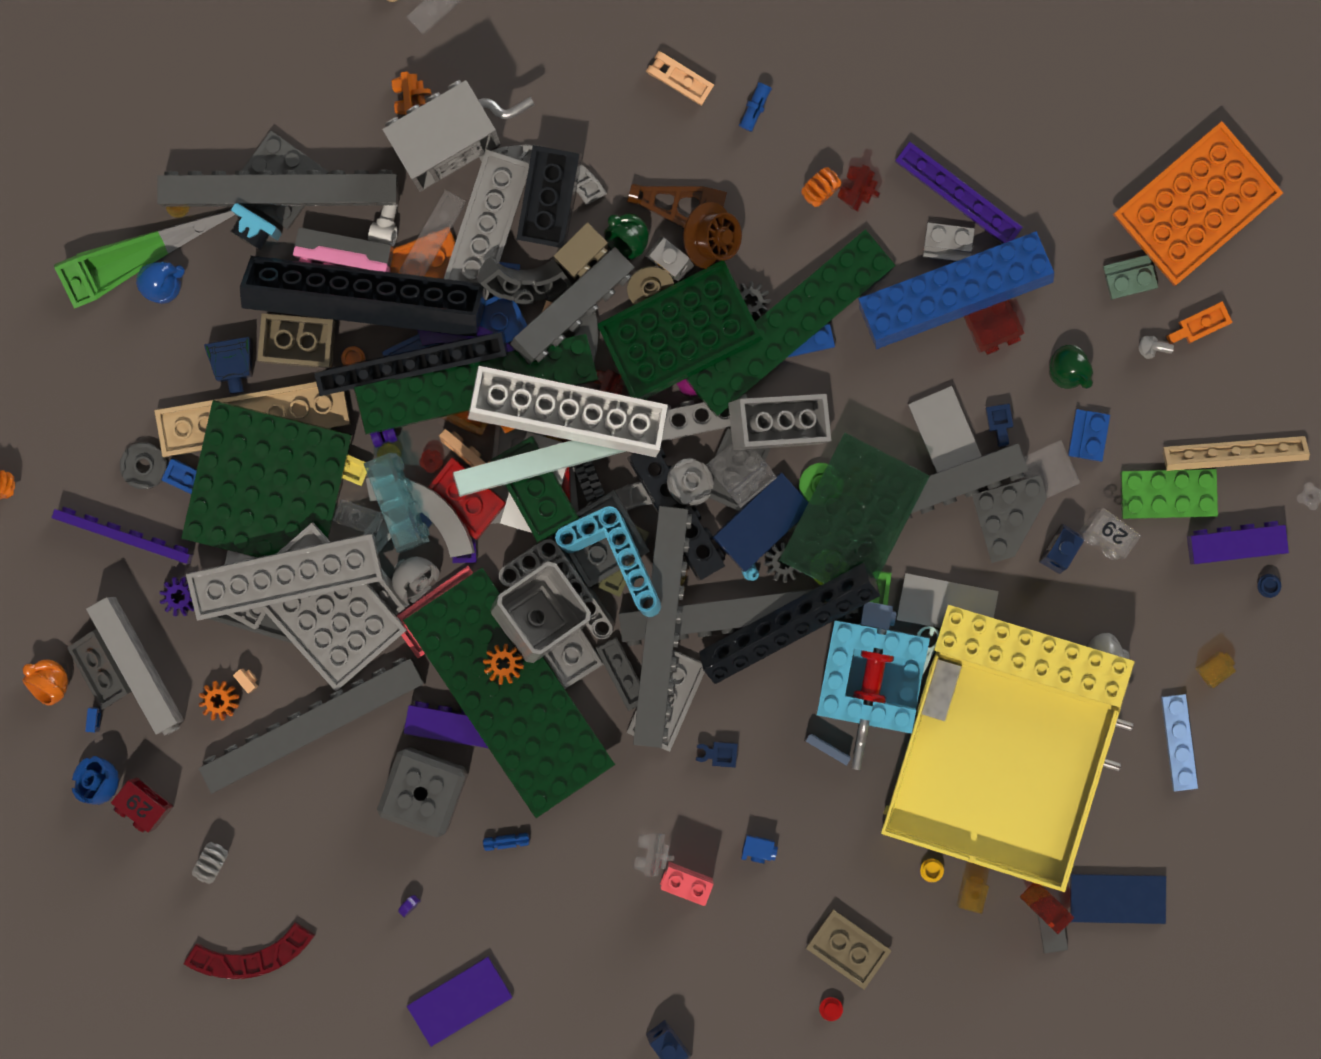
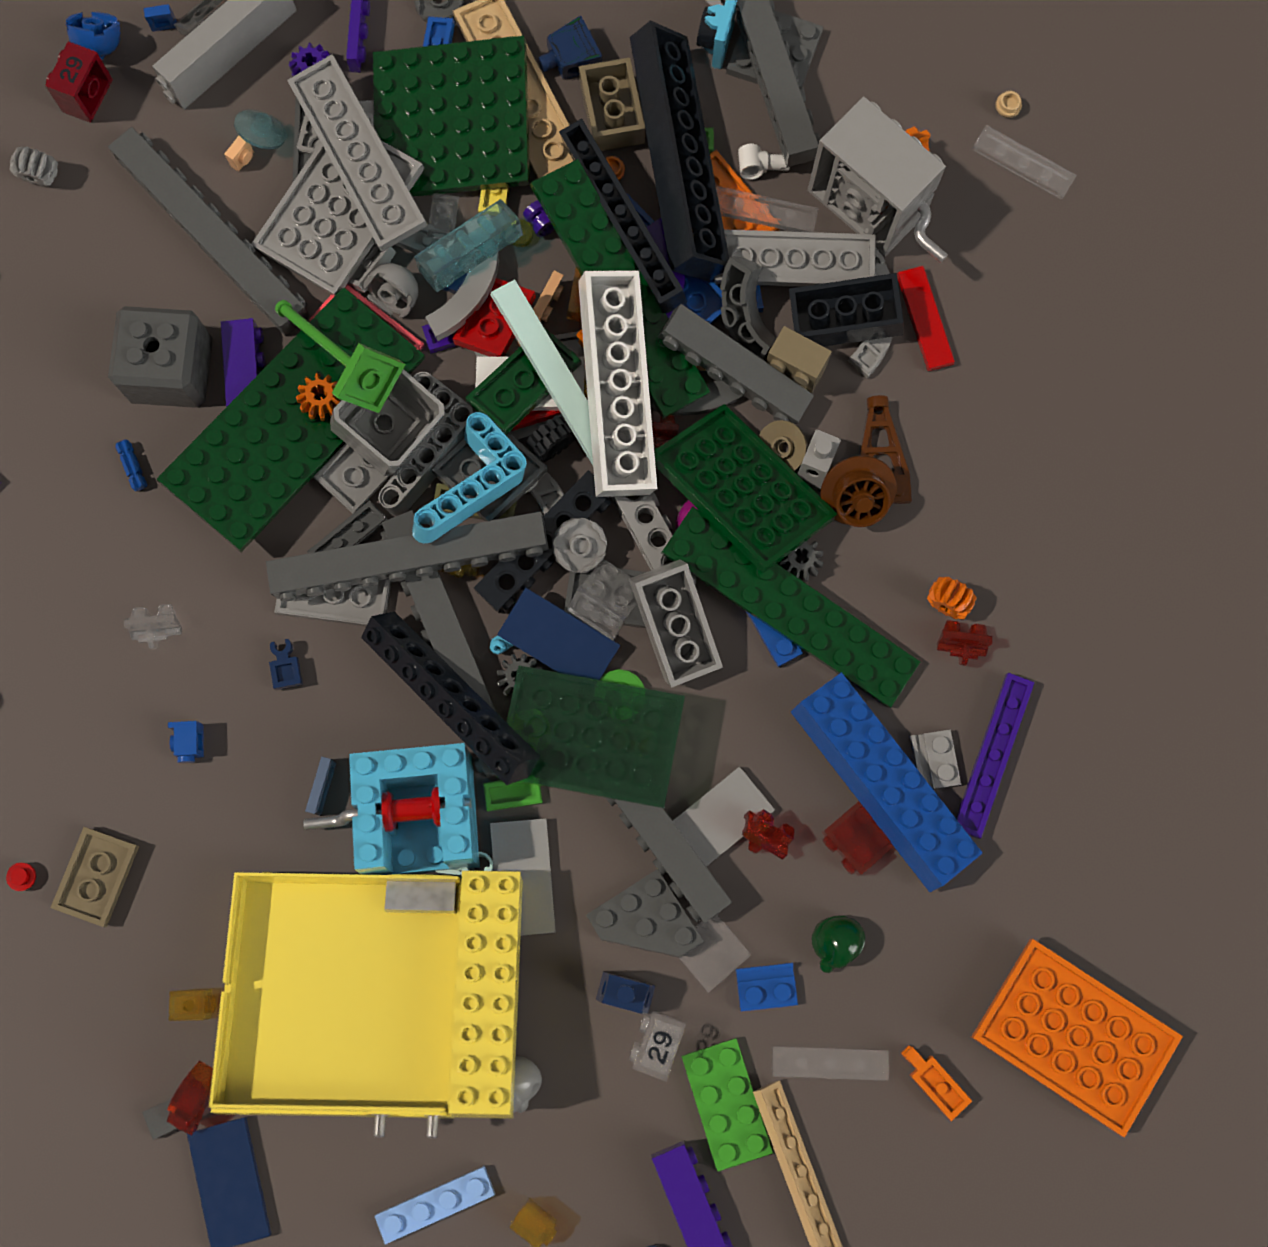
camera: 75 degrees right, 10 degrees down
(225, 696) = (211, 132): orange gear -> none
(234, 662) = (260, 129): none -> clear light blue dish
(342, 251) = (721, 125): piece -> none
(408, 906) = (35, 381): dark purple tile -> none
(431, 467) = (530, 270): clear red plate -> none
(512, 614) = (368, 372): none -> bright green tile
(568, 127) = (925, 318): none -> red tile
(627, 234) = (831, 406): dark green piece -> none
(680, 78) = (1017, 418): light nougat plate -> none
(686, 883) = (124, 666): coral panel -> none
(755, 107) = (1000, 502): blue pin -> none
(877, 615) = (487, 797): sand blue brick -> none
(931, 870) = (210, 948): yellow plate -> none
(970, 401) = (766, 836): none -> clear red hips
(999, 420) = (752, 877): dark blue plate -> none
(1130, 277) = (964, 982): sand green plate -> none
(1150, 344) = (893, 1028): light grey plate -> none
(1161, 403) = (830, 1063): none -> clear tile

